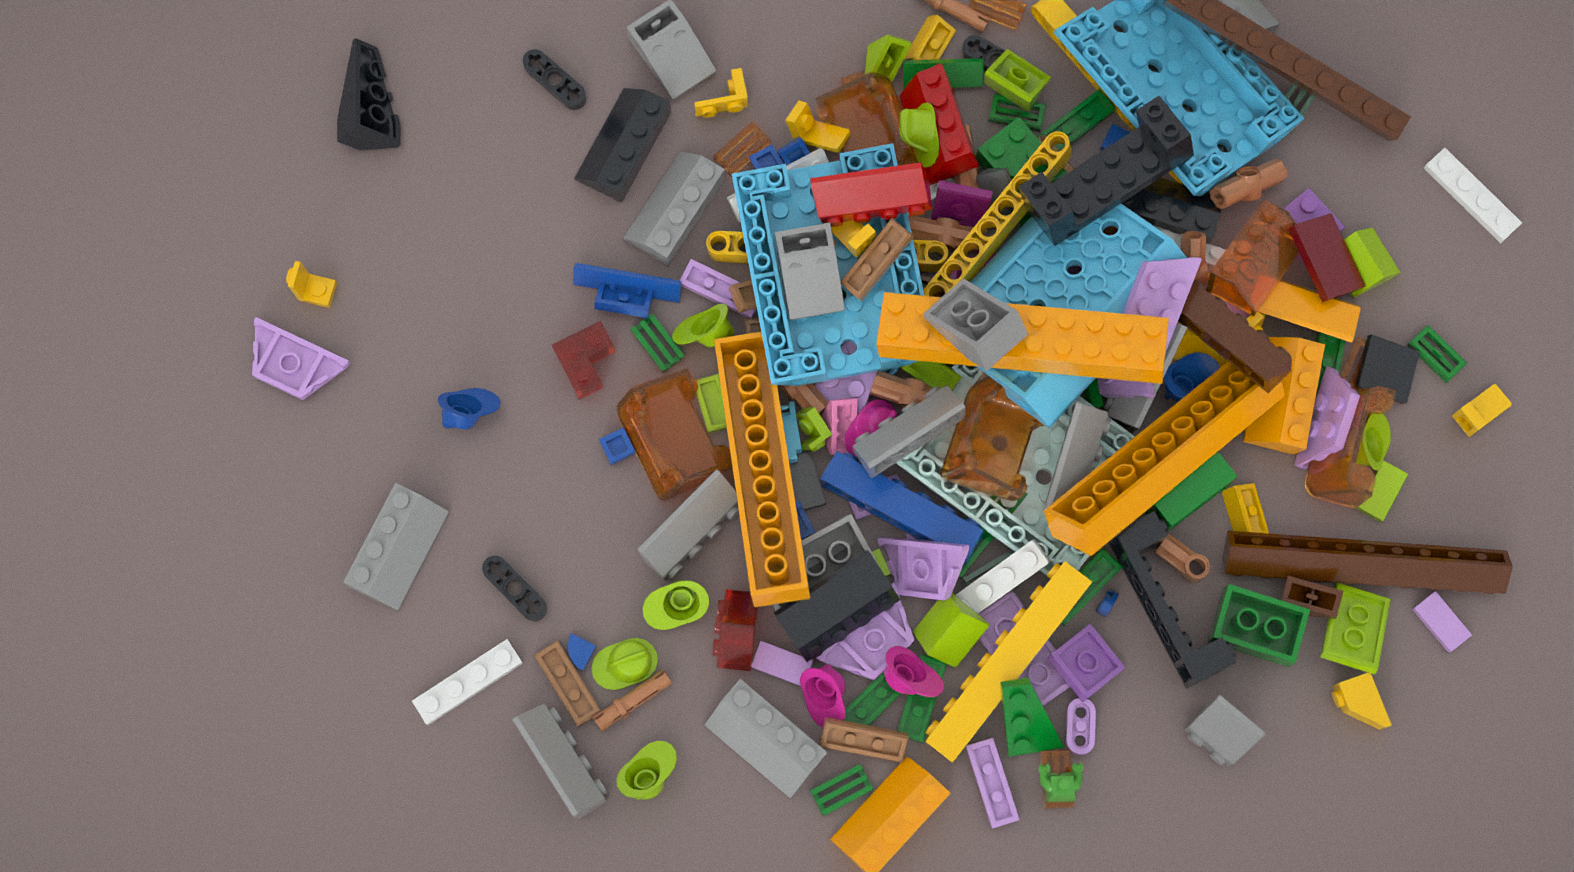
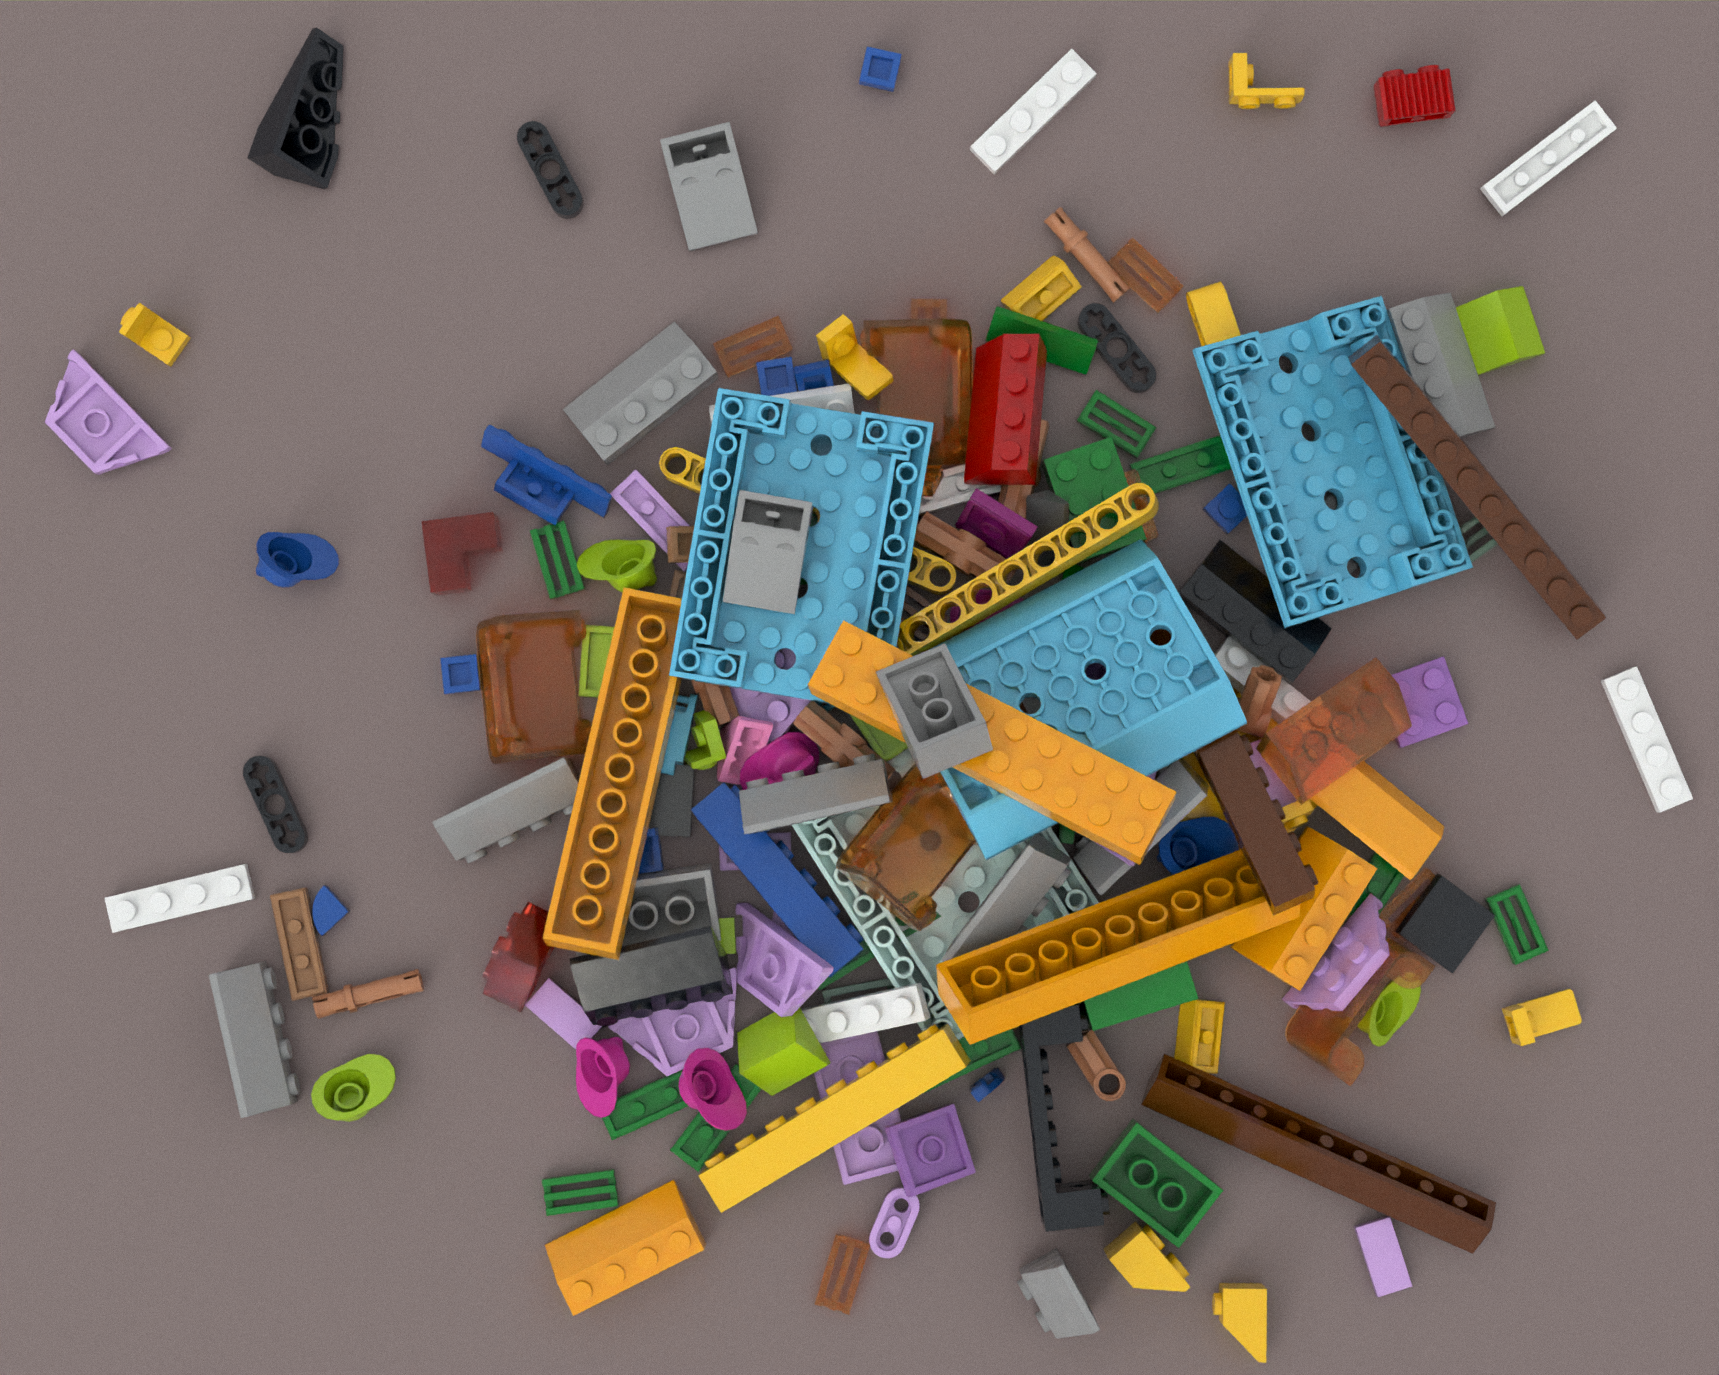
camera: 20 degrees right, 10 degrees up
(396, 547) = (148, 703): light grey slope -> none
(624, 142) = (607, 286): black slope -> none
(624, 663) = (376, 944): lime piece -> none
(675, 604) = (459, 899): lime piece -> none
(734, 103) = (773, 264): yellow bracket -> none
(765, 738) = (512, 1098): light grey slope -> none
(854, 236) = (836, 512): yellow bracket -> none
(863, 739) = (627, 1144): medium nougat tile -> none
(872, 194) = (877, 487): slope -> none
(877, 259) = (856, 566): medium nougat tile -> none
(886, 55) = (974, 296): lime slope -> none
(920, 132) = (976, 415): lime piece -> none
(992, 783) = (762, 1251): lavender plate -> none
(1016, 79) = (1131, 383): lime slope -> none
(1025, 720) = (829, 1195): green wing -> none
(1062, 786) = (841, 1288): bright green piece -> none
(1110, 175) = (1184, 567): black plate -> none
(1162, 289) = (1189, 744): lavender wing -> none
(1248, 183) = (1368, 626): nougat piece -> none
(1272, 682) = (1143, 1264): none -> yellow slope
(1320, 599) = (1233, 1173): reddish brown slope -> none
(1326, 257) = (1425, 759): dark red tile -> none
(1358, 630) = (1272, 1228): lime tile -> none
(1370, 259) = (1473, 775): lime slope -> none
(1387, 486) = (1380, 1070): lime tile -> none

